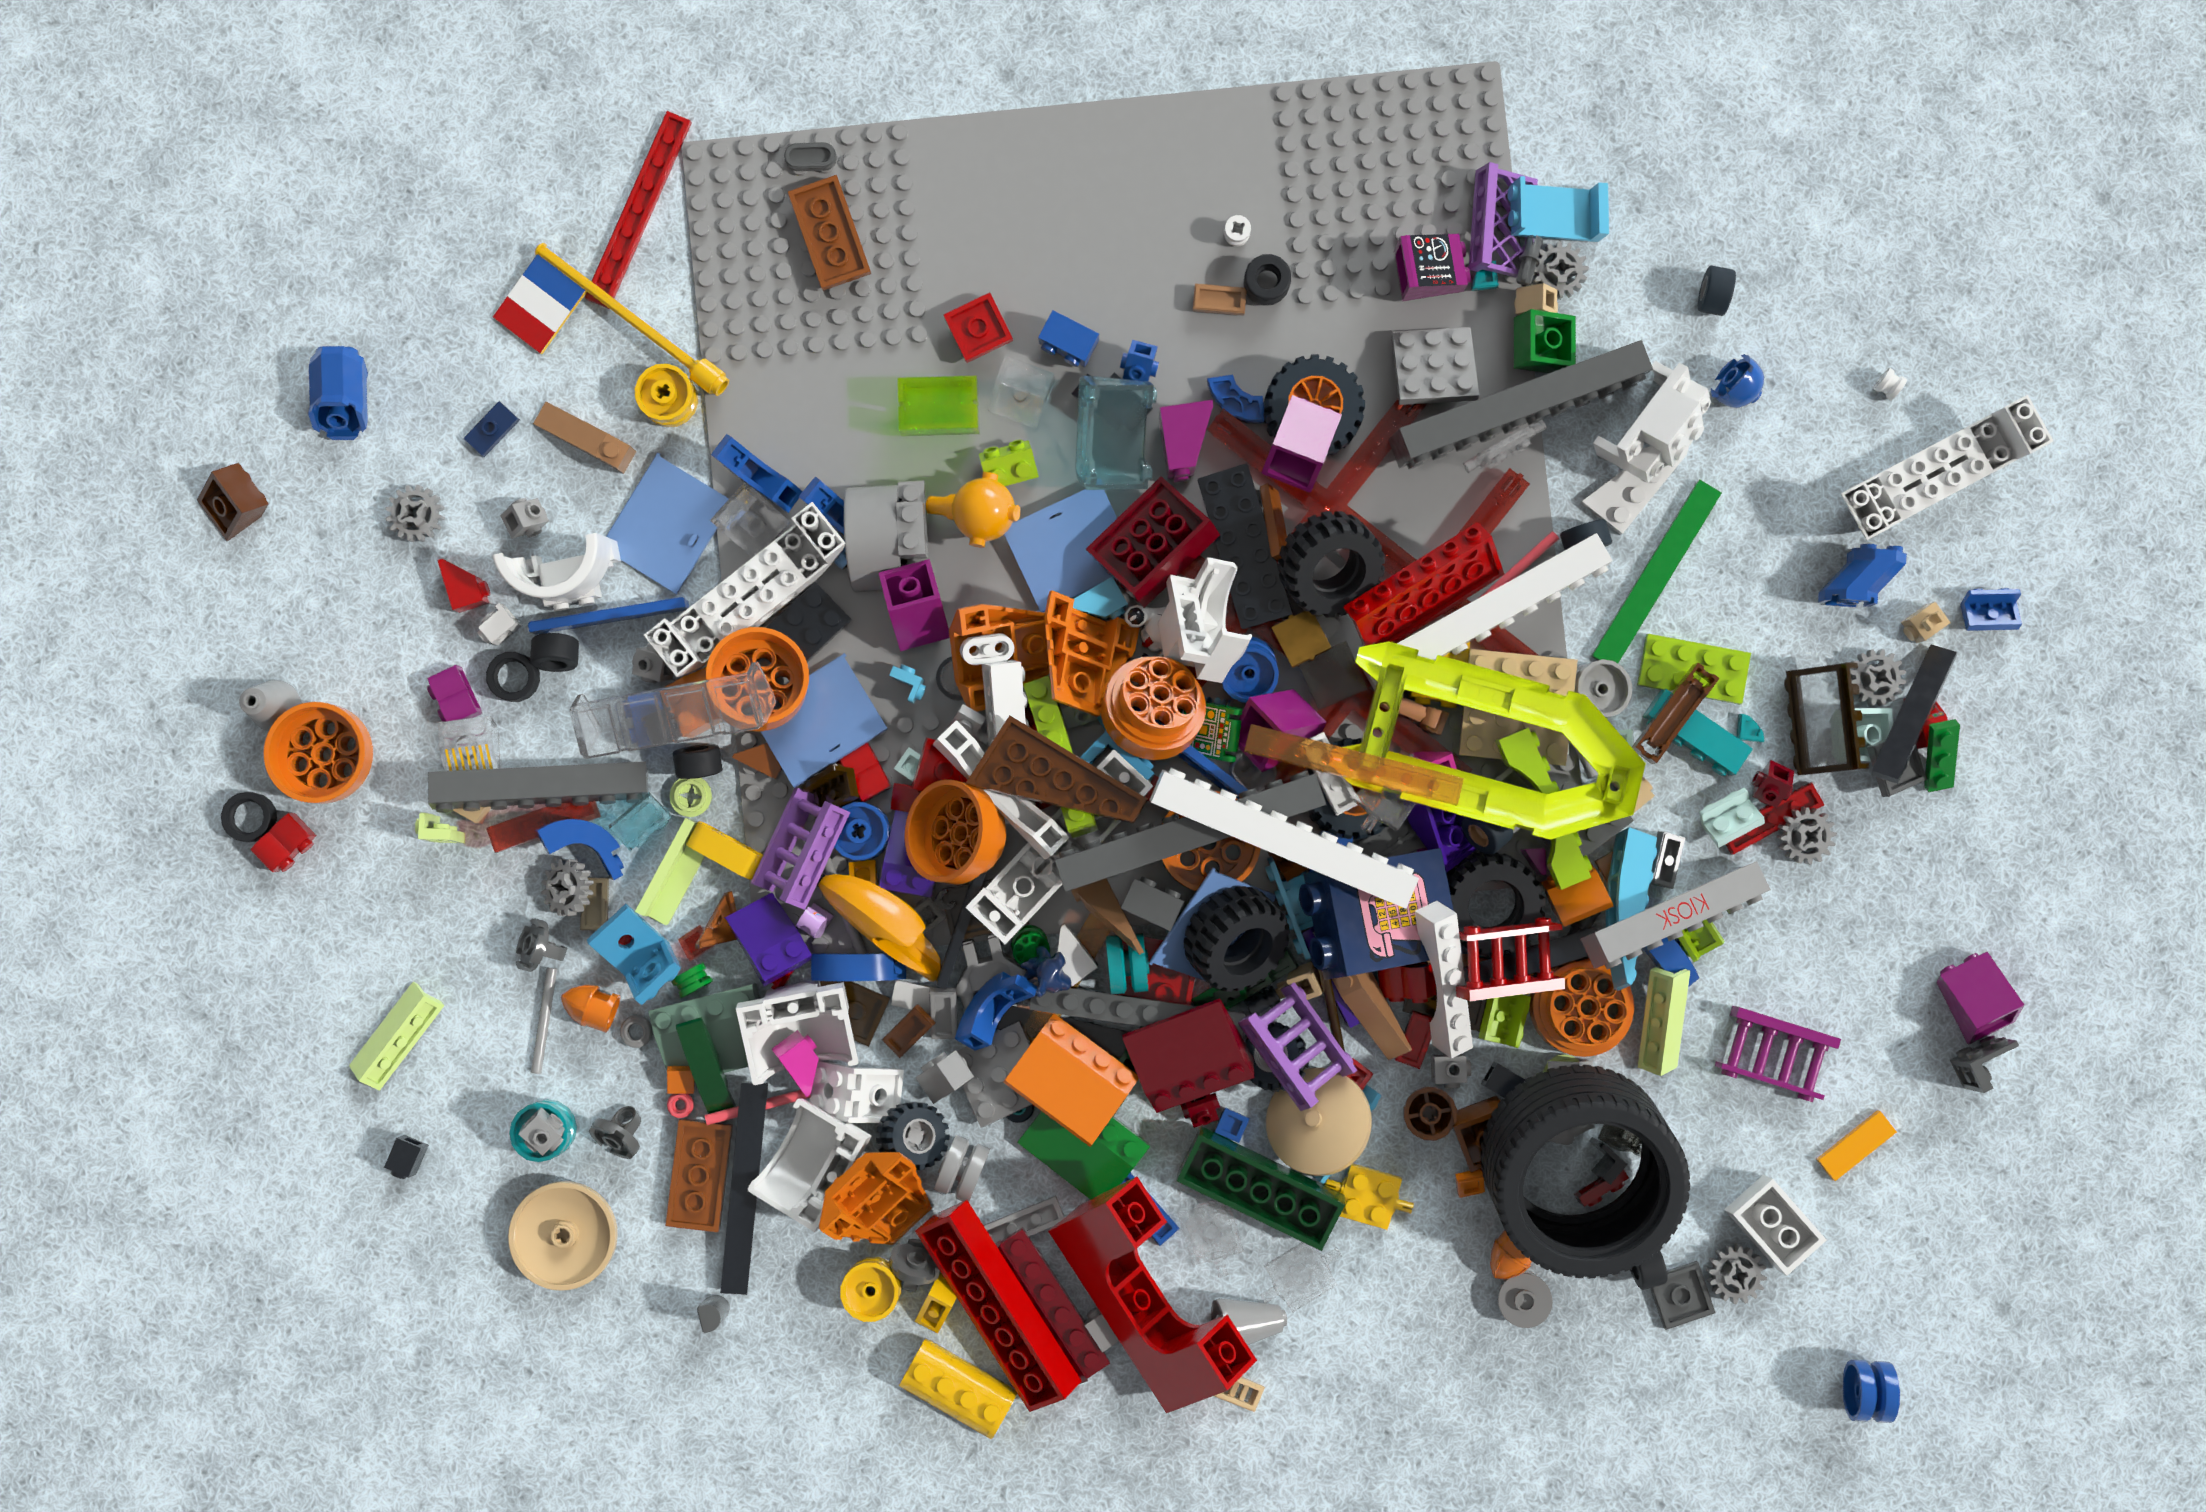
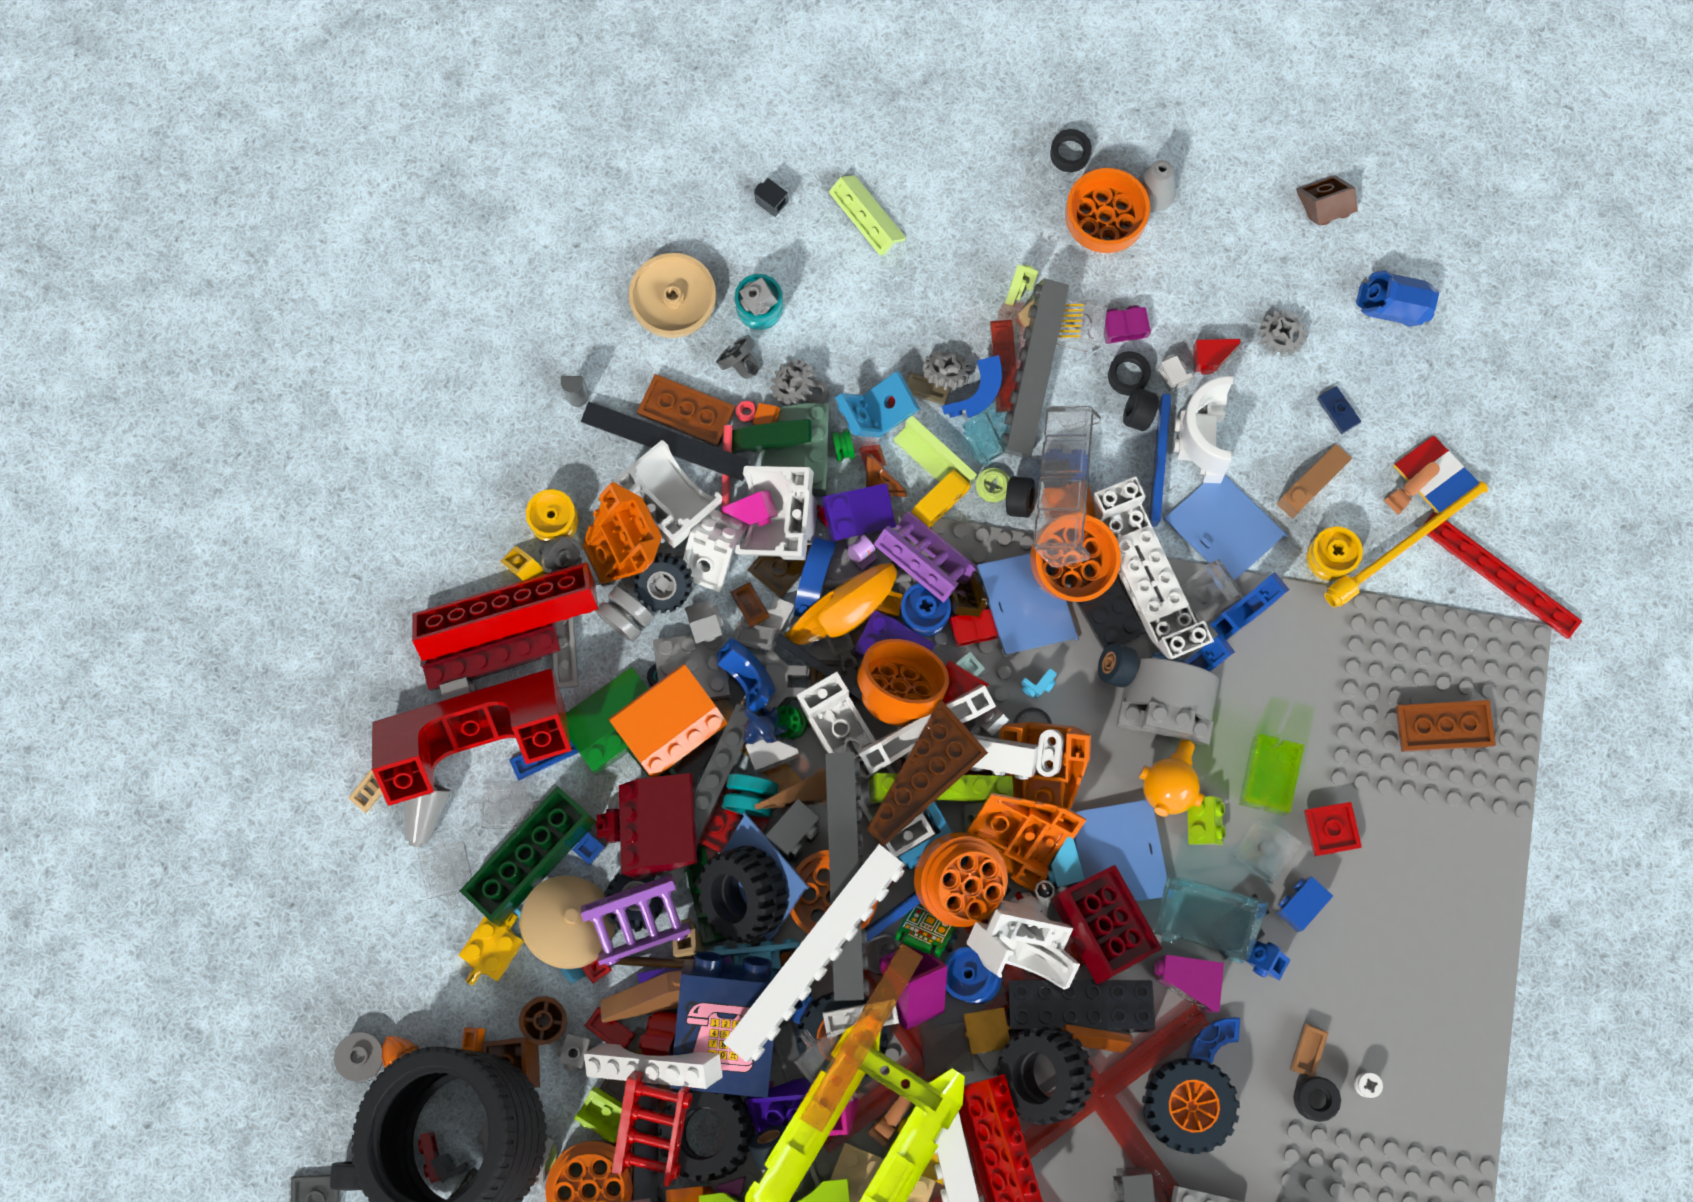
camera: 105 degrees right, 10 degrees down
(283, 843) = (1043, 170): red brick -> none
(524, 518) = (1258, 415): light grey brick -> none
(534, 945) = (906, 333): dark grey tile -> none
(544, 1019) = (845, 326): light grey bar -> none
(579, 337) = (1401, 498): none -> nougat piece
(591, 1007) = (845, 363): orange helmet -> none
(631, 1060) = (793, 382): none -> light grey gear
(650, 665) = (1109, 477): light grey brick -> none
(761, 759) = (1008, 546): dark orange tile -> none
(810, 156) = (1516, 729): dark grey tile -> none
(863, 601) = (1118, 665): none -> black wheel
(903, 797) = (945, 651): red slope -> none
(914, 605) = (1104, 704): magenta slope -> none
(958, 1388) = (451, 563): yellow container -> none
(1263, 1001) = (683, 903): black piece -> none
(1301, 443) = (1160, 1079): slope -> none
(1501, 1079) = (552, 1095): black brick -> none

